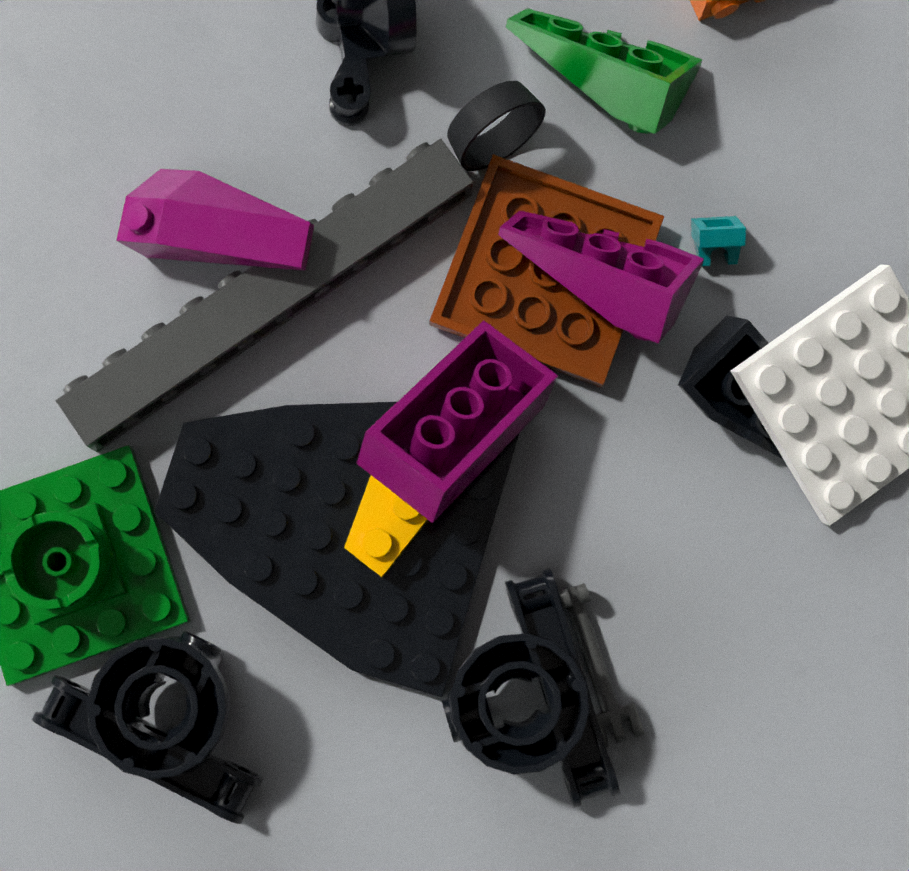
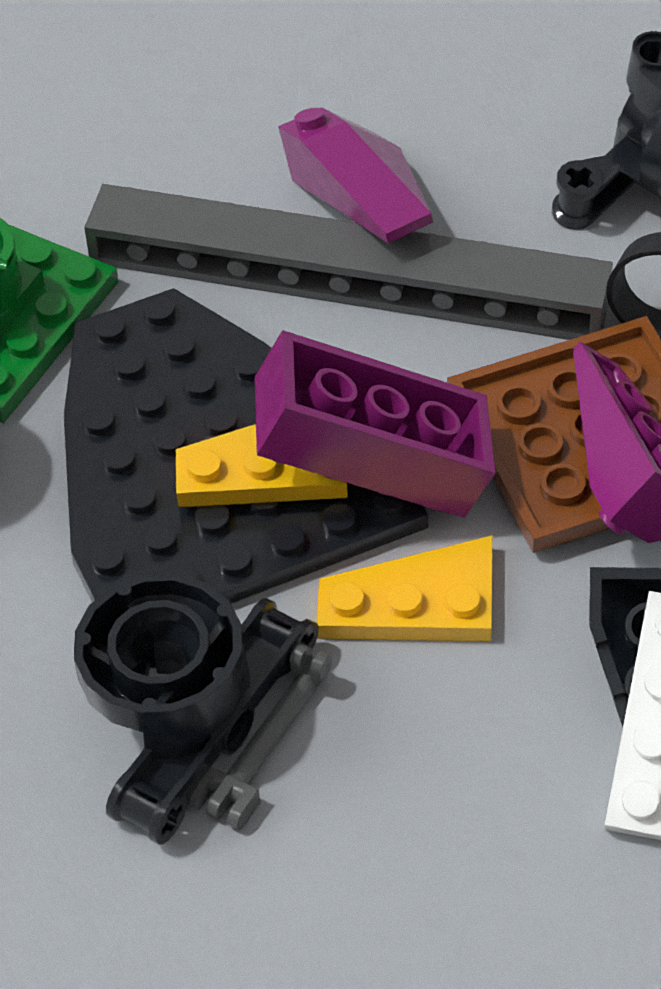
camera: 55 degrees right, 30 degrees down
(571, 486) = (414, 597): none -> yellow wing

